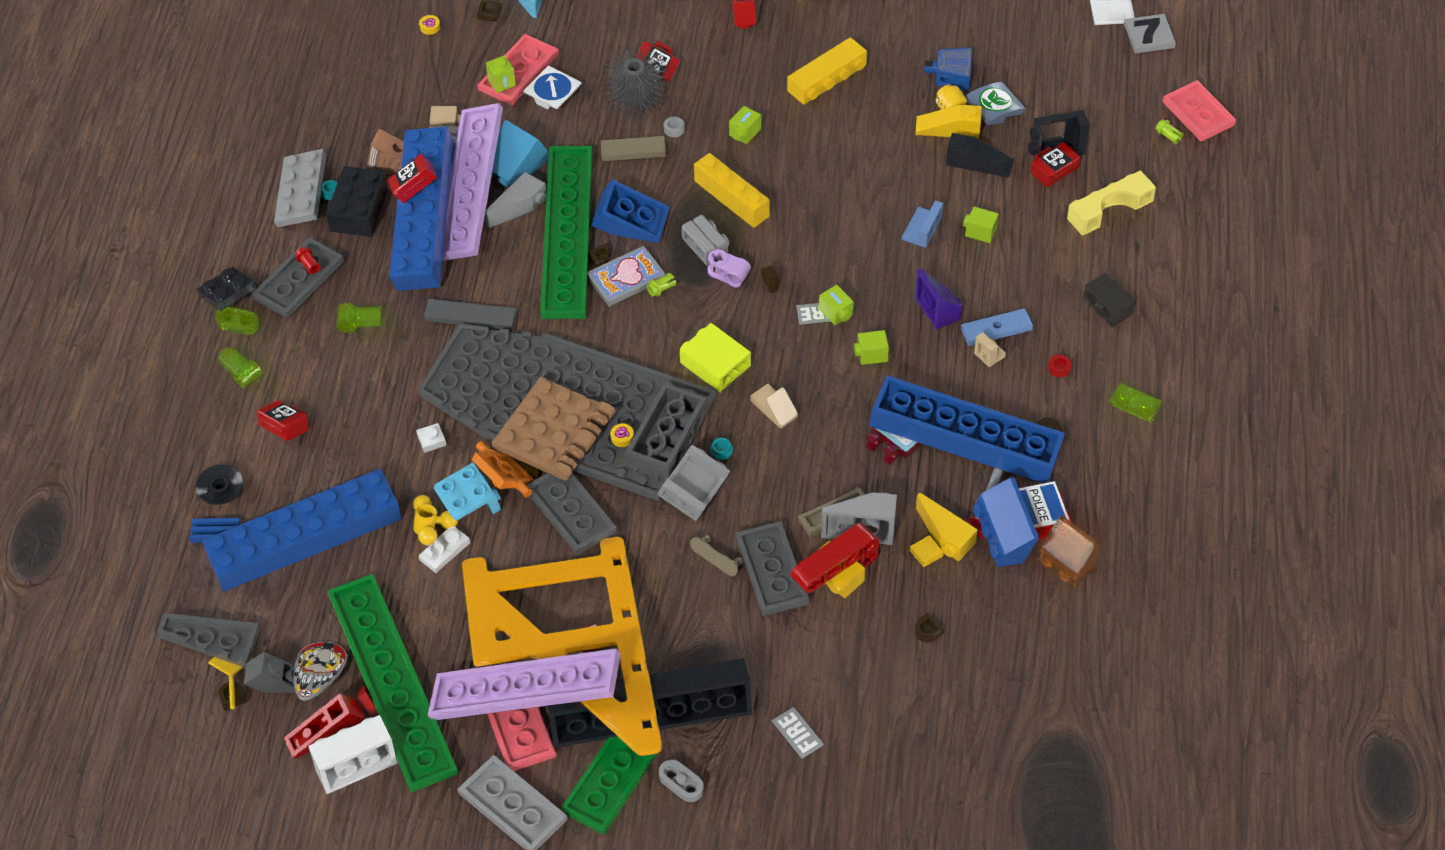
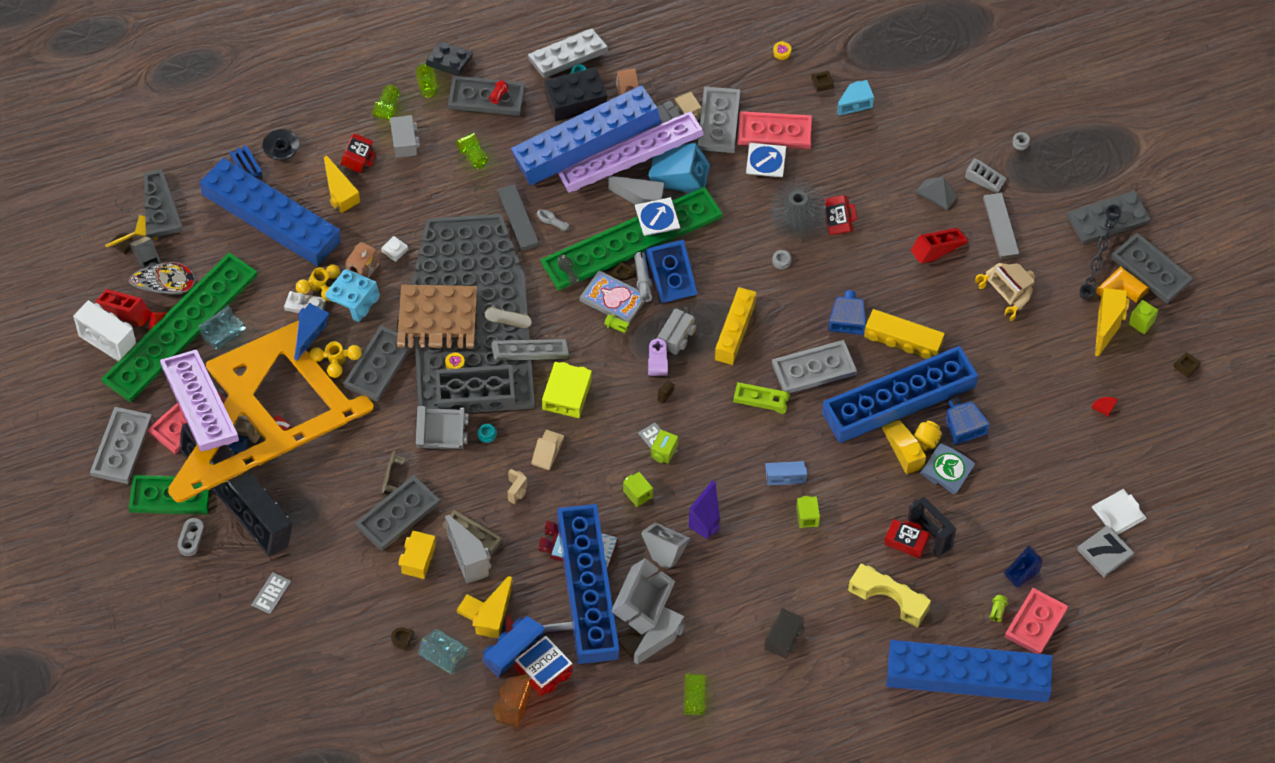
camera: 60 degrees right, 5 degrees up
(295, 368) = (404, 137): none -> light grey brick
(314, 453) = (341, 190): none -> yellow slope
(412, 178) = (594, 112): red piece -> none
(425, 639) = (221, 328): none -> clear light blue bracket
(430, 464) = (363, 260): none -> nougat torso
(468, 94) = (719, 119): none -> light grey plate
(485, 553) = (311, 323): none -> blue slope
(491, 288) = (549, 218): none -> light grey piece
(500, 74) = (751, 119): lime brick -> none
(502, 469) = (383, 304): orange plate -> none
(552, 551) = (334, 369): none -> yellow piece
(563, 193) = (657, 216): none -> piece
(565, 294) = (565, 265): none -> clear smoke piece
(598, 366) = (507, 317): none -> piece
(629, 240) = (643, 283): none -> light grey pin
(633, 148) = (742, 242): dark tan tile -> none
(647, 366) = (530, 349): none -> light grey tile
(745, 125) = (809, 304): lime brick -> none
(776, 101) = (848, 315): none -> blue torso
(808, 447) = (519, 486): none -> tan bracket
(817, 152) = (814, 367): none -> light grey plate
(825, 207) = (761, 397): none -> lime plate
(852, 546) = (418, 546): red beam -> none
(895, 100) = (899, 394): none -> blue brick
(953, 349) = (664, 544): none -> light grey slope
(966, 596) = (442, 650): none -> clear light blue bracket
(974, 155) = (879, 480): black slope -> none
(988, 350) = (680, 570): tan bracket -> none
(997, 326) = (702, 559): medium blue tile -> none
(1011, 387) = (643, 599): none -> light grey piece
(1050, 394) = (665, 632): none -> light grey slope
(1059, 366) = (700, 626): red tile -> none
(1137, 91) = (1024, 567): none -> clear blue slope
(1227, 179) = (969, 671): none -> blue brick

